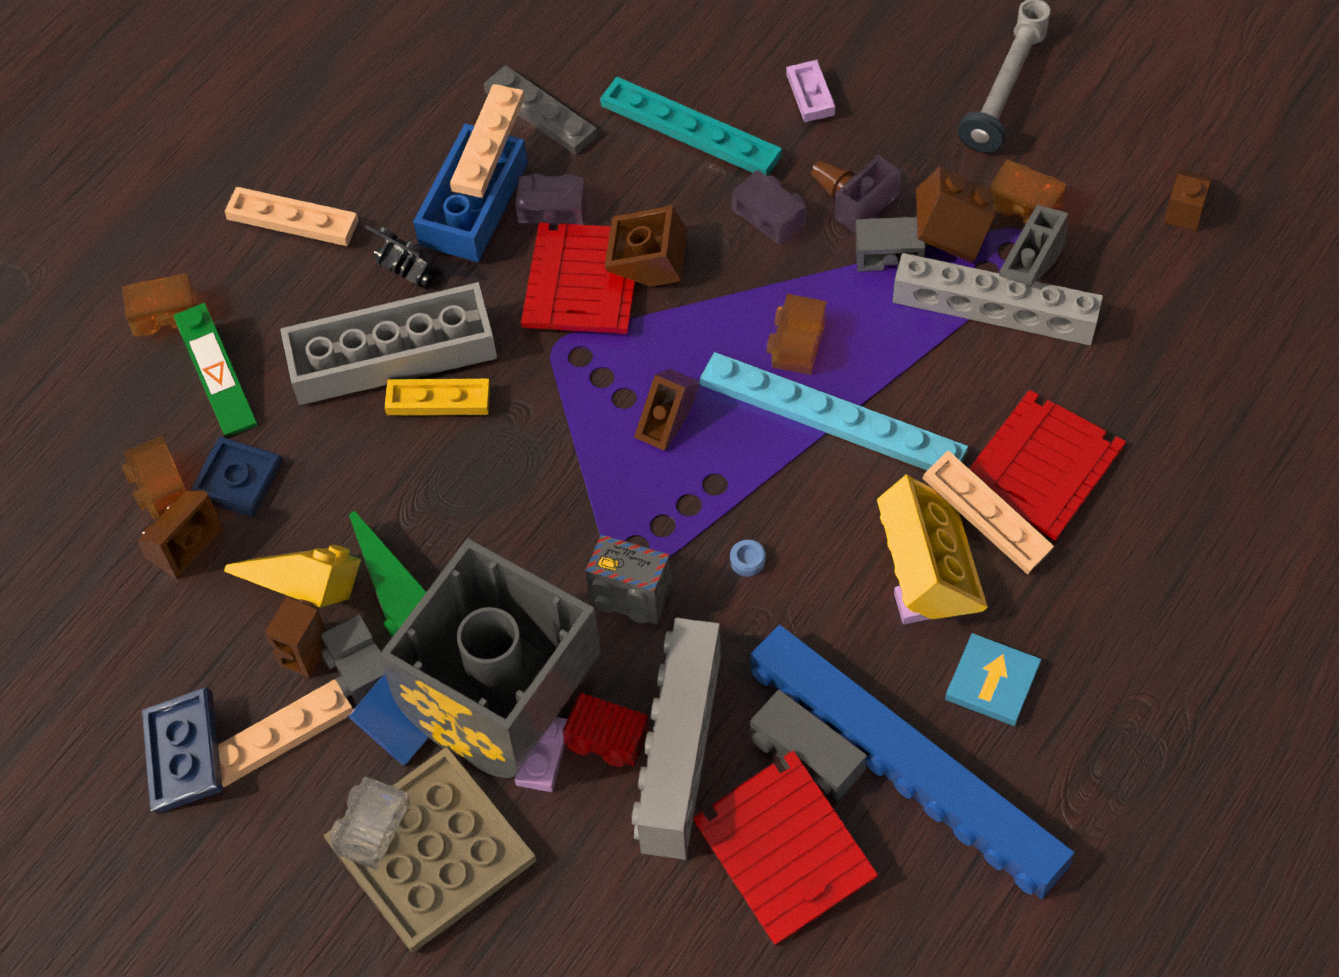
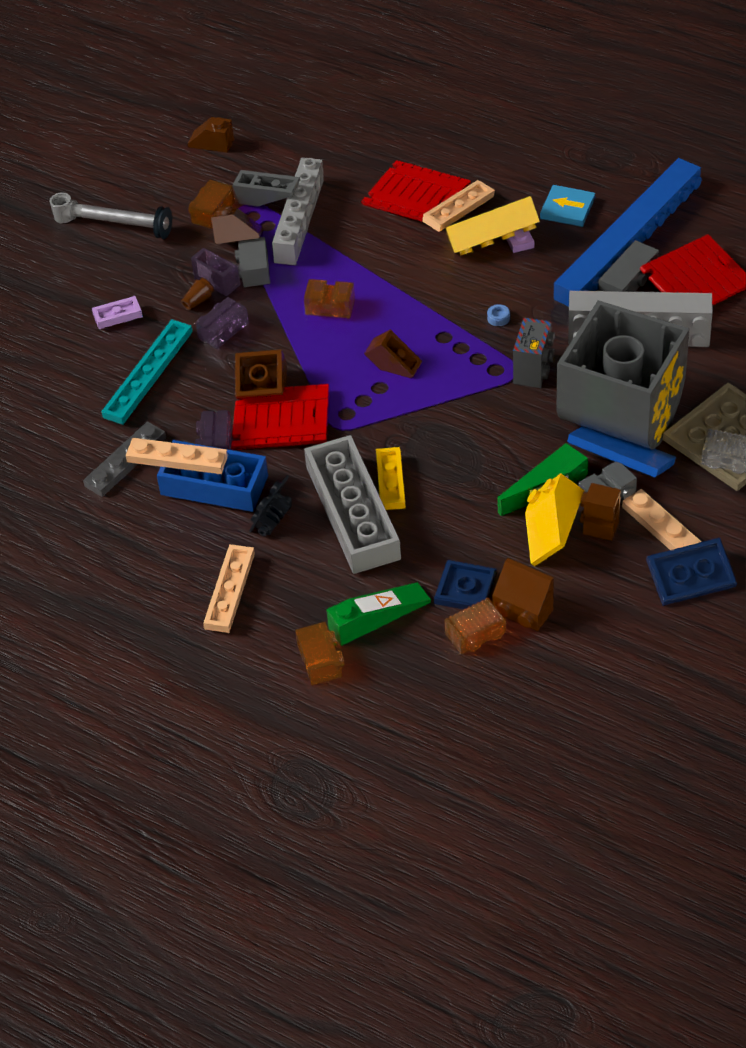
camera: 95 degrees left, 10 degrees down
(827, 413) = (387, 285): medium azure plate -> none

